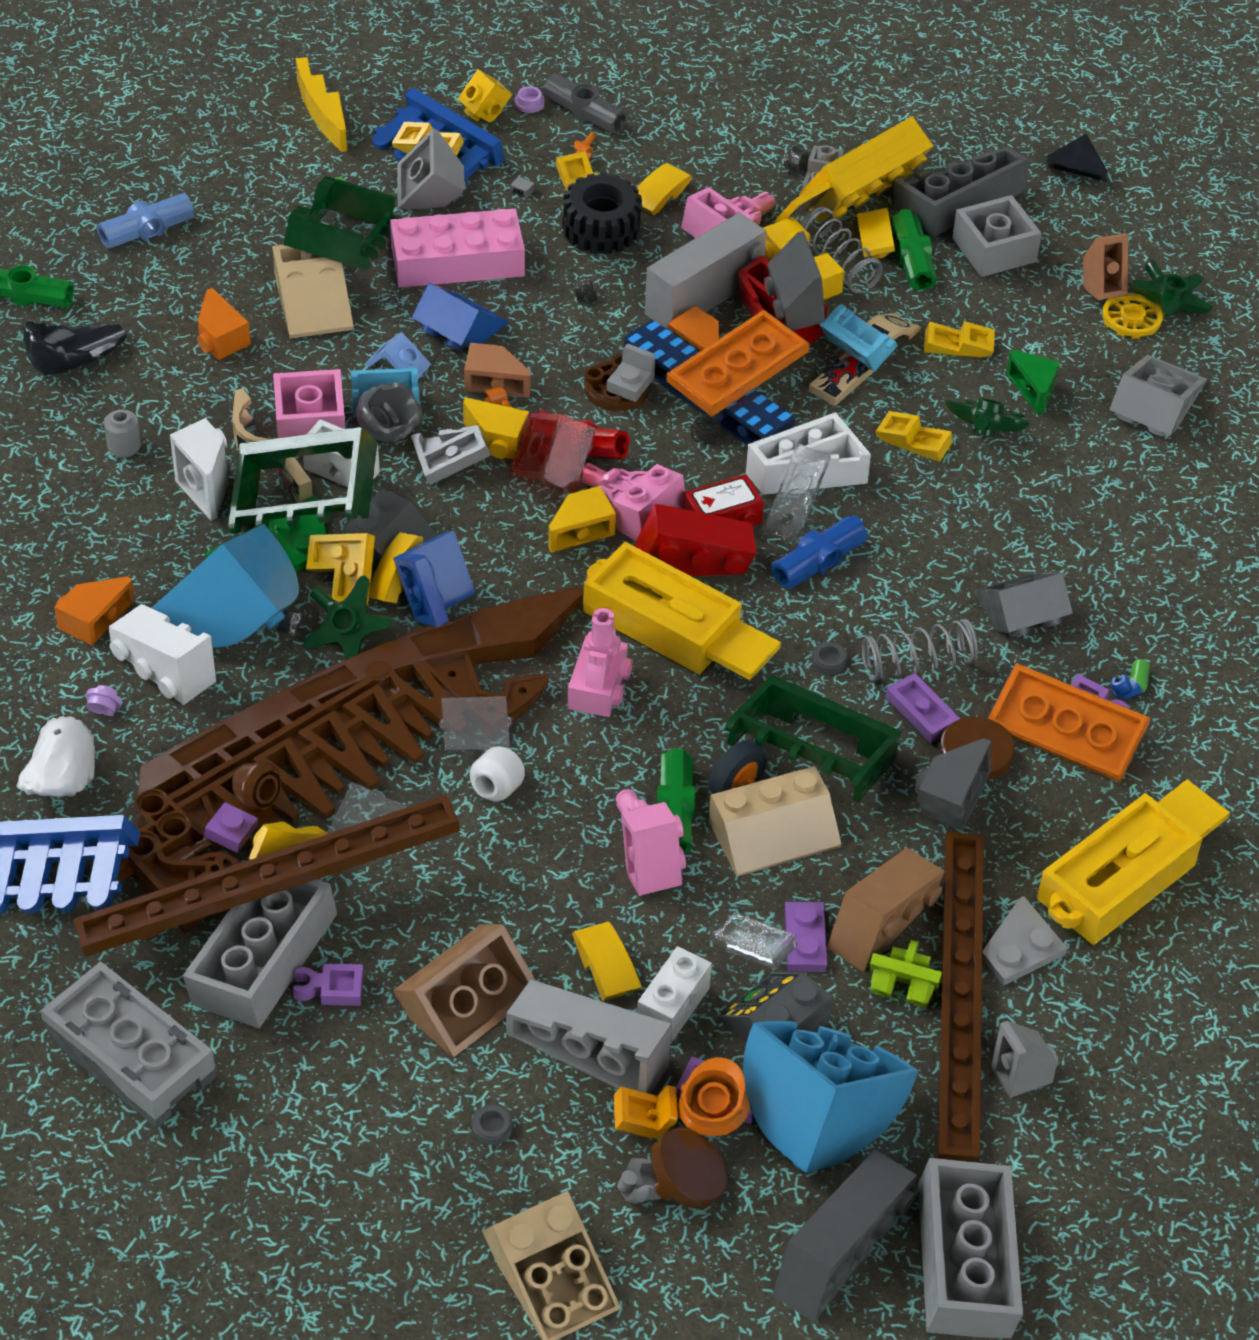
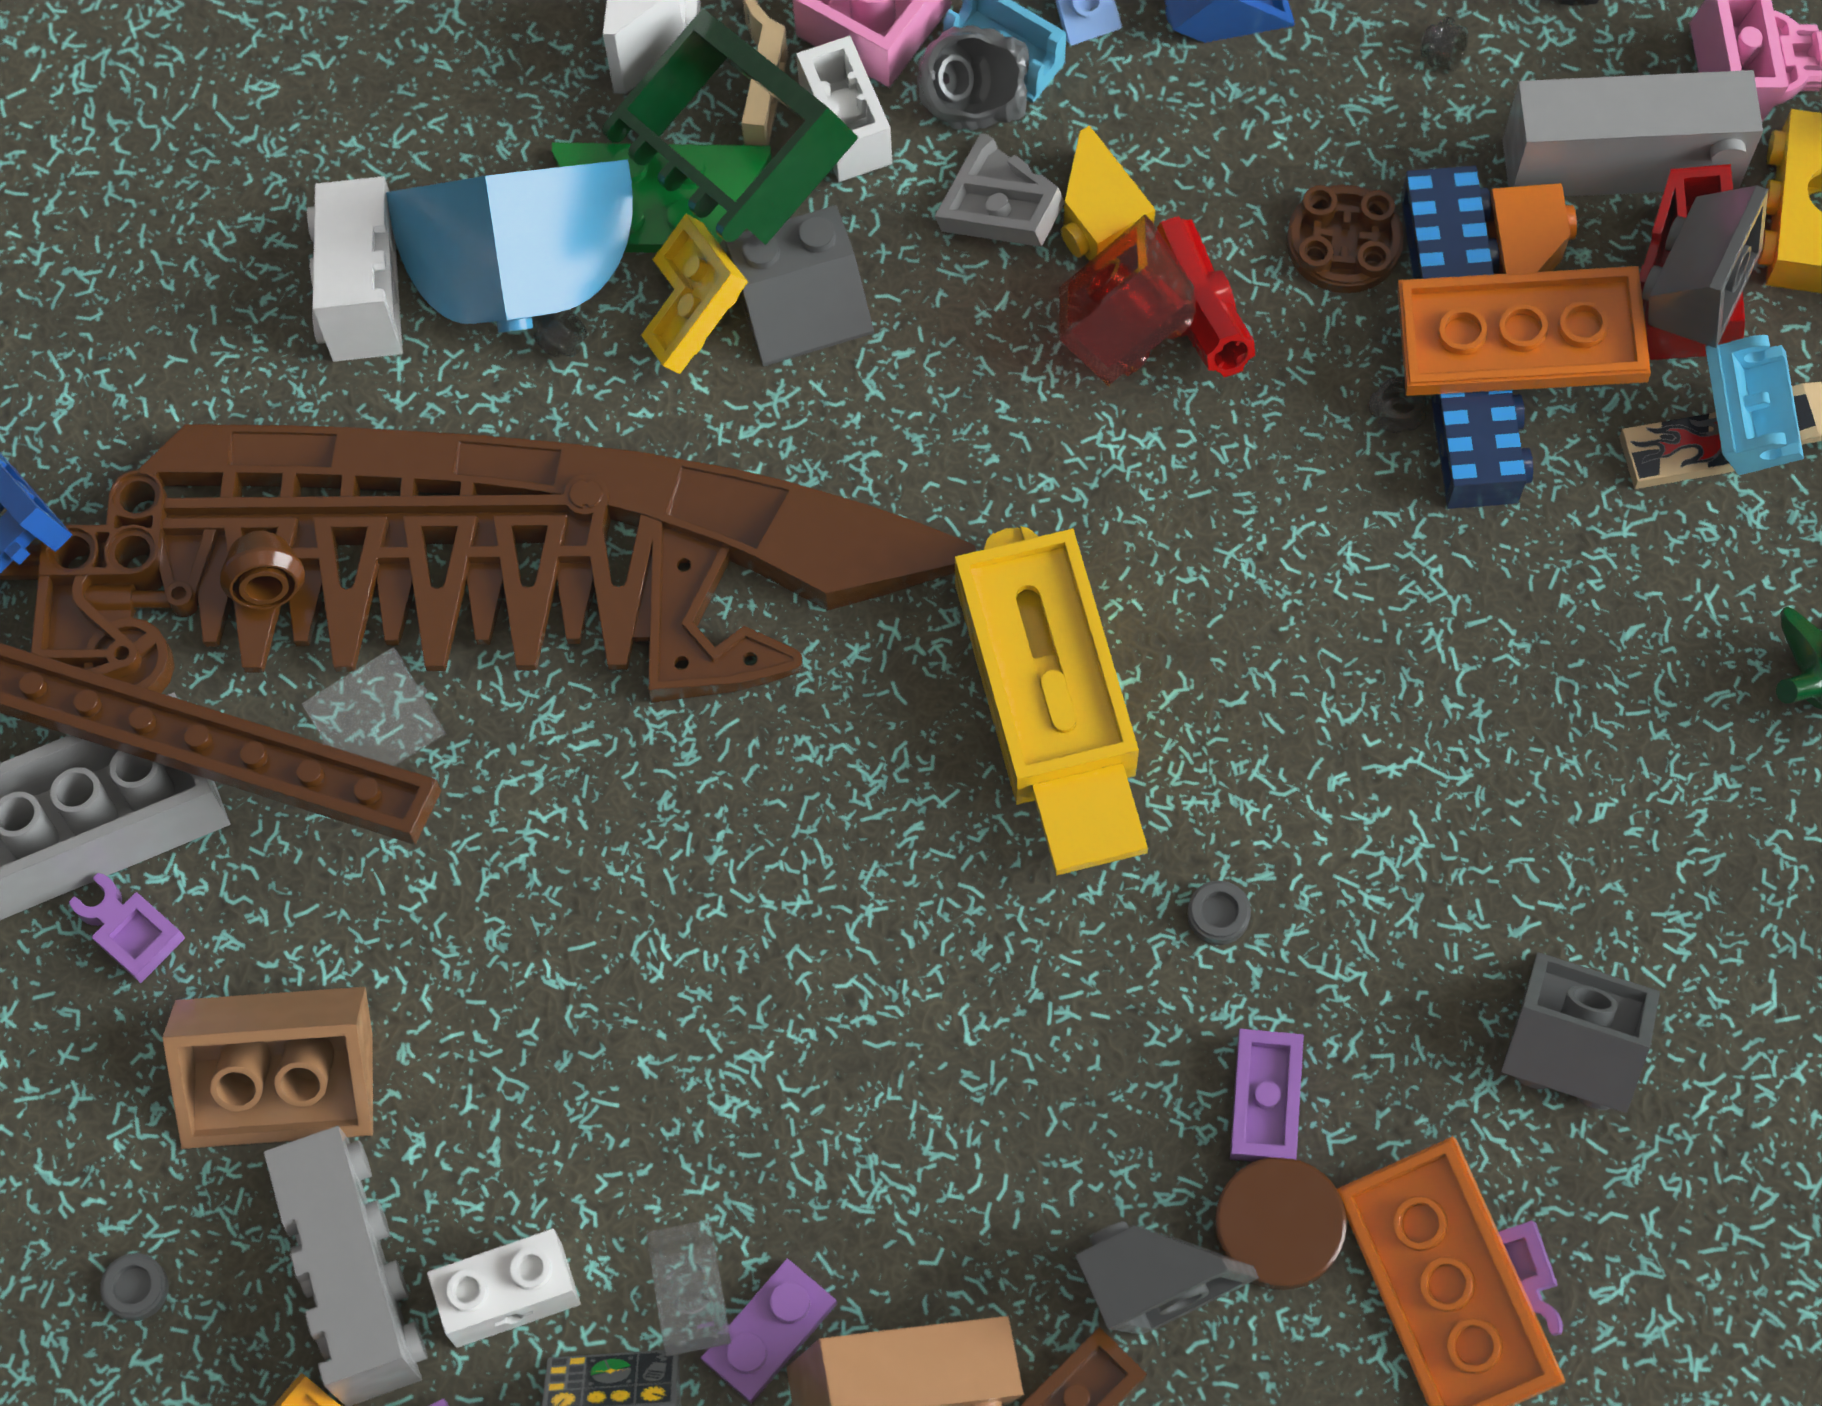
camera: 45 degrees right, 20 degrees up
(60, 760) = (92, 350): white piece -> none
(93, 607) = (341, 136): orange slope -> none
(103, 700) = (232, 288): lavender plate -> none
(231, 827) = (190, 606): medium lavender plate -> none
(281, 835) = (222, 683): yellow slope -> none
(346, 620) = (622, 382): dark green animal -> none
(386, 580) = (756, 339): yellow slope -> none
(434, 578) = (783, 399): blue bracket -> none
(475, 723) = (631, 670): clear piece -> none
(495, 366) = (1181, 100): nougat slope -> none
(497, 396) = (1154, 148): orange hand -> none
(497, 773) = (599, 767): white head -> none
(582, 519) = (1076, 435): yellow slope -> none
(600, 668) = (868, 709): bright pink brick -> none
(607, 959) = (477, 1163): yellow slope -> none
(633, 373) = (1360, 244): light grey bracket -> none
(636, 493) = (1187, 461): bright pink brick -> none
(651, 843) = (669, 1030): bright pink brick -> none
(677, 790) = (787, 988): green piece -> none
(697, 541) = (1189, 594): red wedge -> none
(729, 498) = (1292, 557): brick -> none
(738, 767) = (900, 1010): black wheel -> none
(774, 821) = (884, 1126): tan slope -> none
(785, 700) = (1083, 952): dark green hinge -> none
(797, 493) = (1404, 614): clear plate -> none
(819, 551) = (1364, 728): blue piece -> none
(829, 434) = (1488, 561): white wedge -> none
(907, 433) = (1698, 626): yellow slope -> none
(970, 635) = (1424, 1039): light grey piece -> none
(1133, 685) = (1621, 1293): arm -> none

